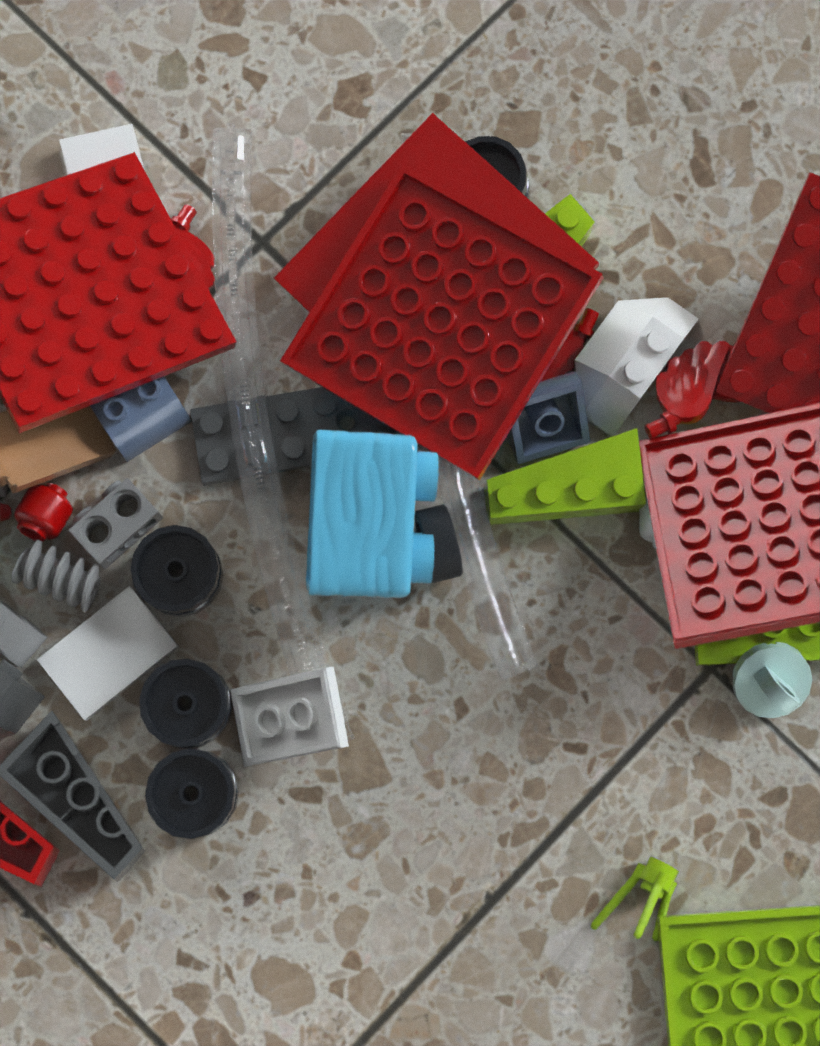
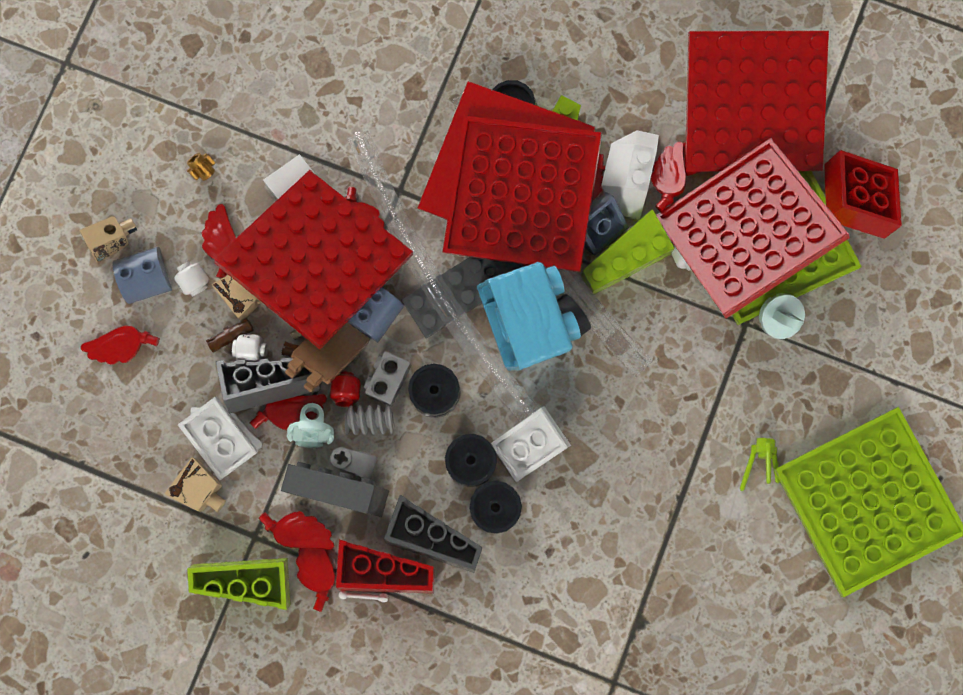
camera: 15 degrees left, 0 degrees up
(107, 653) = (414, 452): white tile -> none

